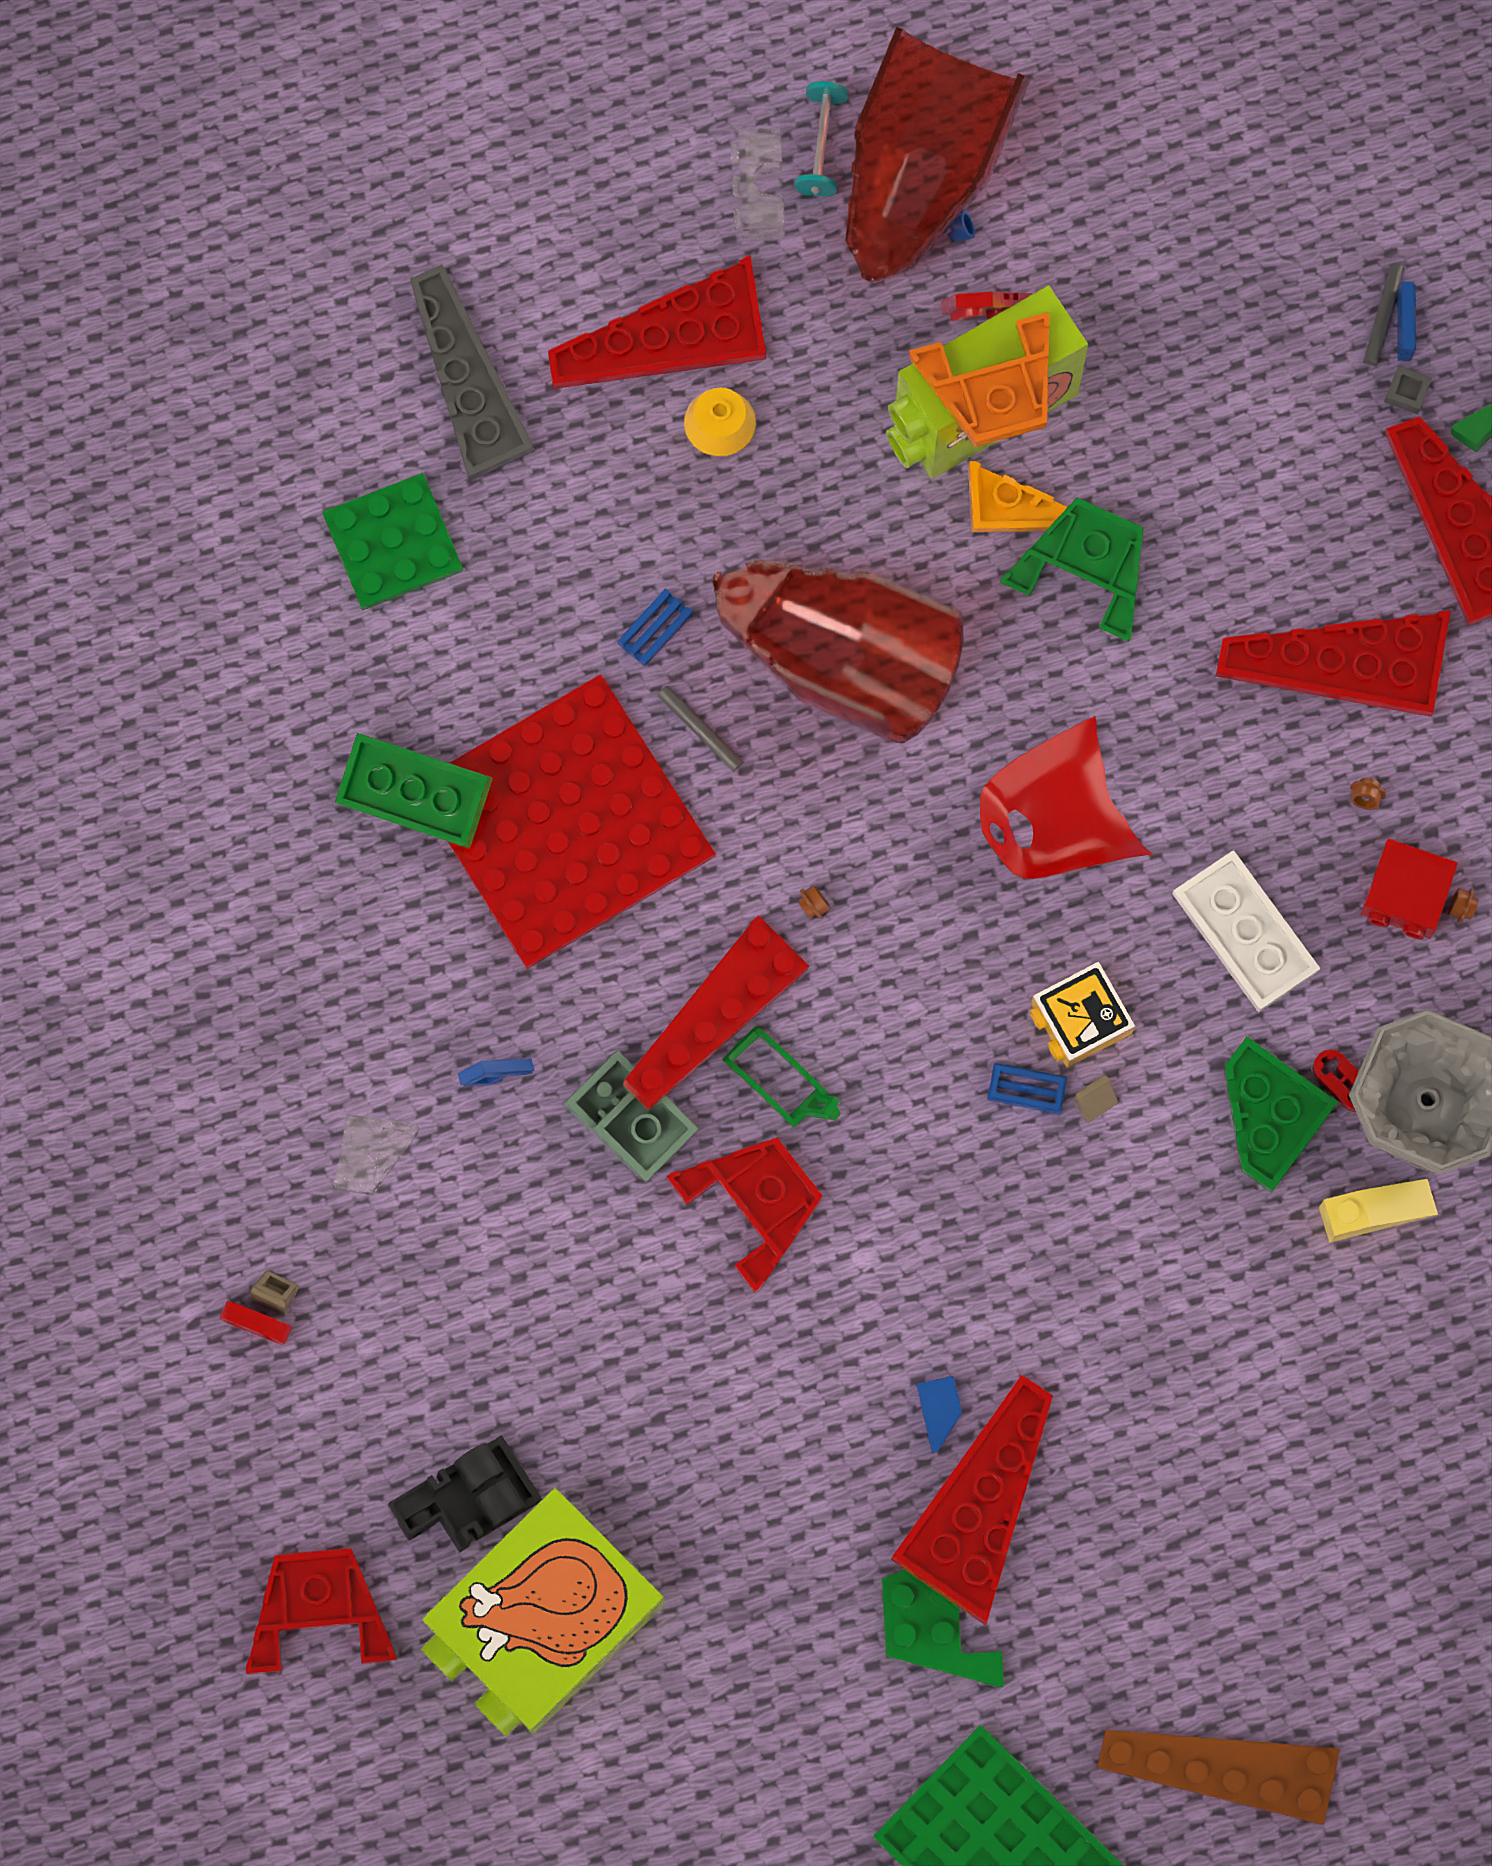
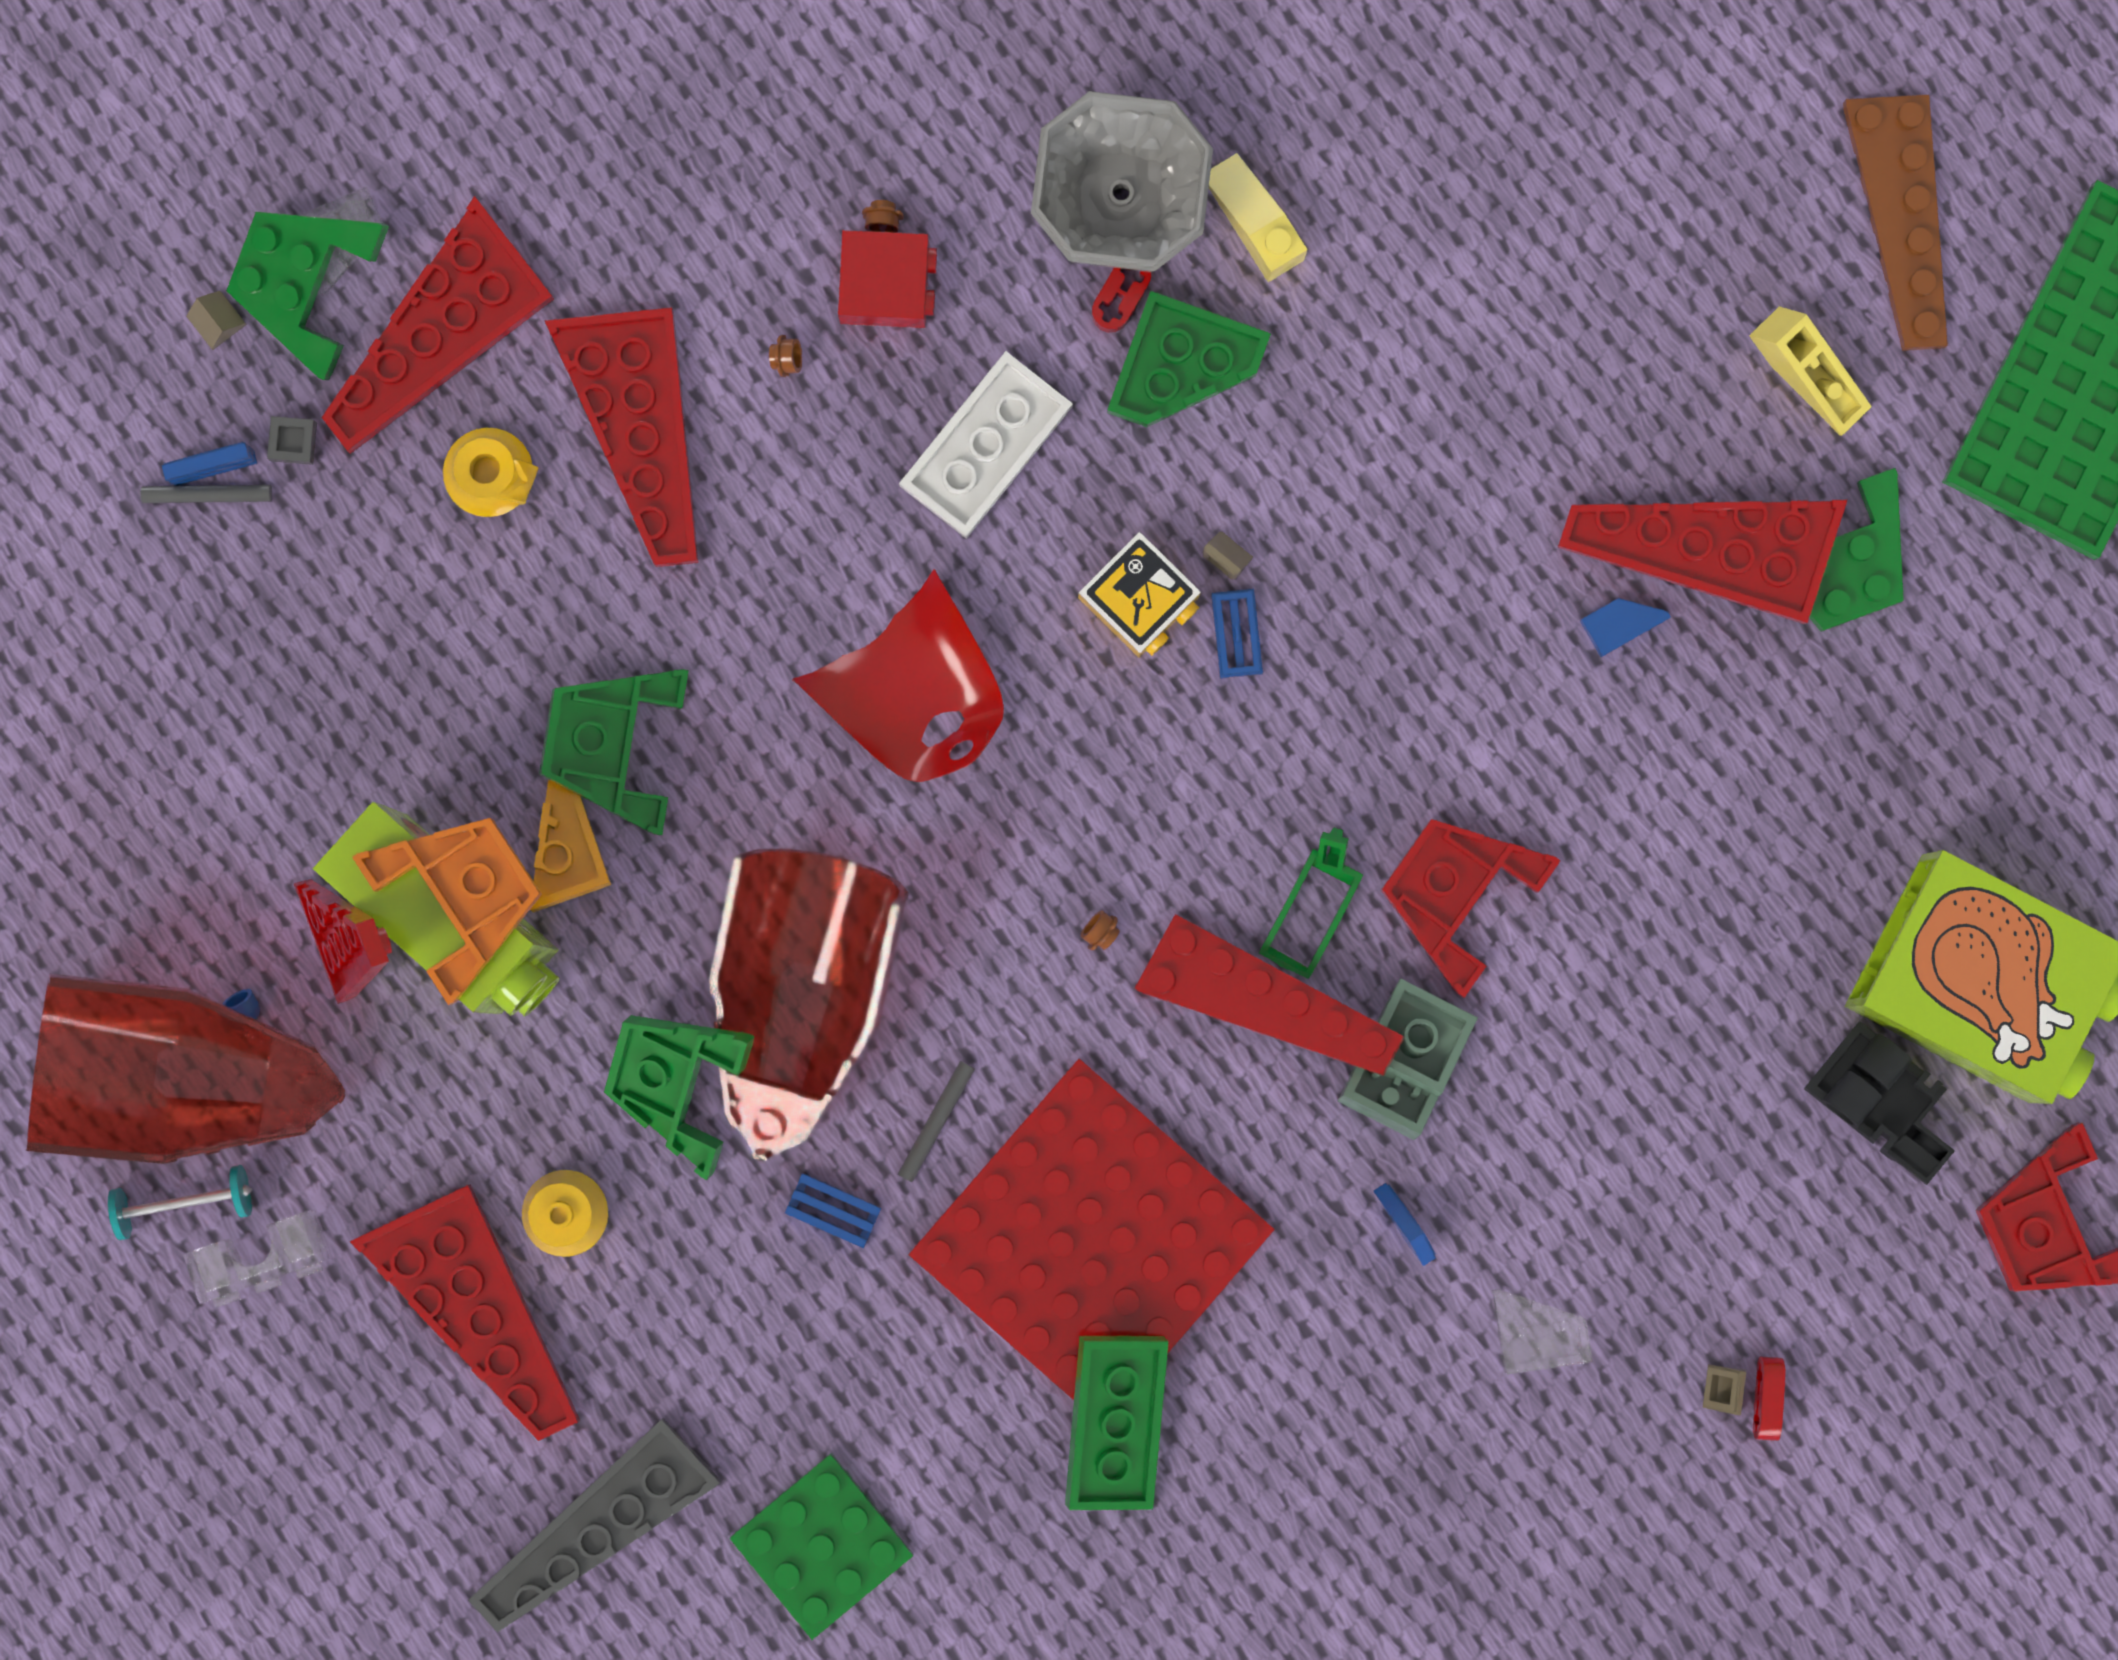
camera: 110 degrees left, 10 degrees up
(805, 519) = (657, 1073): none -> green wing
(1109, 1640) = (1810, 367): none -> light yellow slope
(1337, 533) = (488, 472): none -> yellow piece

